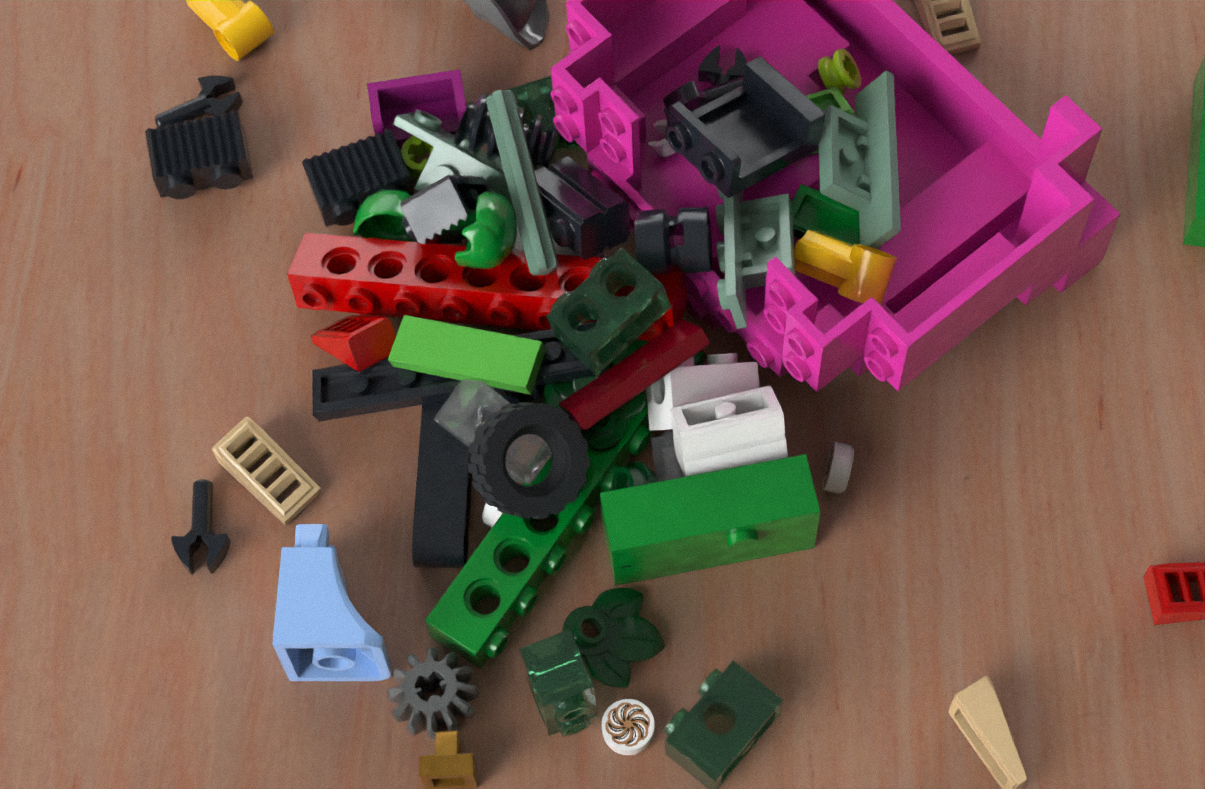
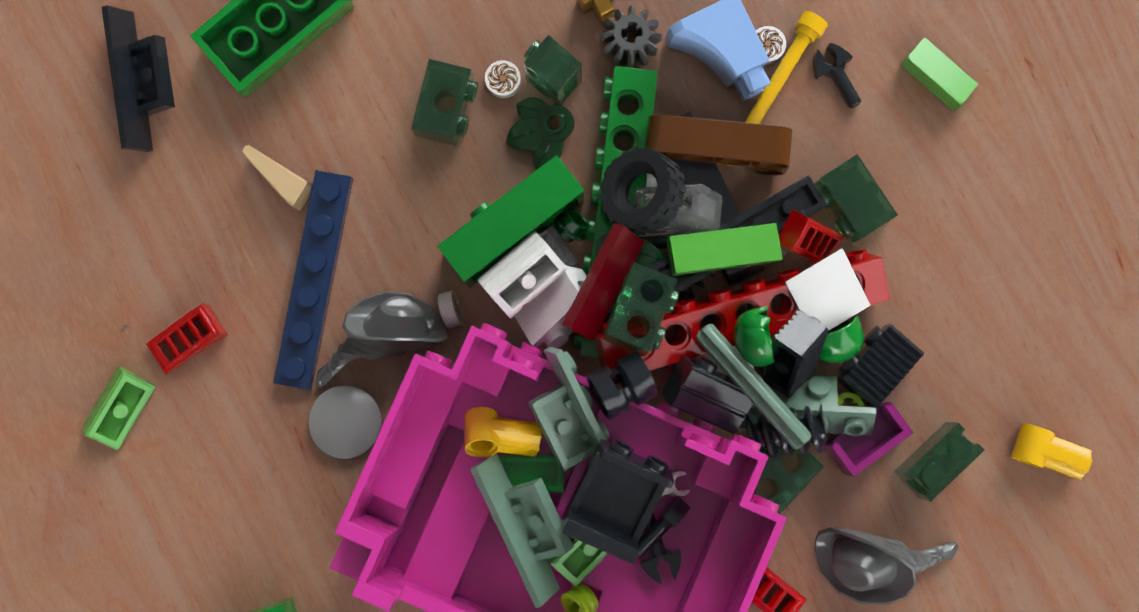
camera: 150 degrees right, 20 degrees up
(80, 470) = (939, 74): none -> slope
(199, 155) = (1001, 329): black brick -> none
(205, 102) = (1026, 375): black bar -> none
(206, 595) = (809, 28): none -> yellow piece
(243, 448) = (820, 117): tan slope -> none
(258, 605) = (772, 41): none -> tile
(274, 367) = (855, 199): none -> clear green brick
(354, 54) = (938, 461): none -> clear green brick
(356, 463) = (721, 142): none -> reddish brown beam
(372, 261) = (829, 290): none -> white sticker
(930, 475) = (383, 327): none -> dark grey hat
(997, 592) = (313, 280): none -> dark blue plate
(1032, 402) = (345, 421): none -> light grey dish

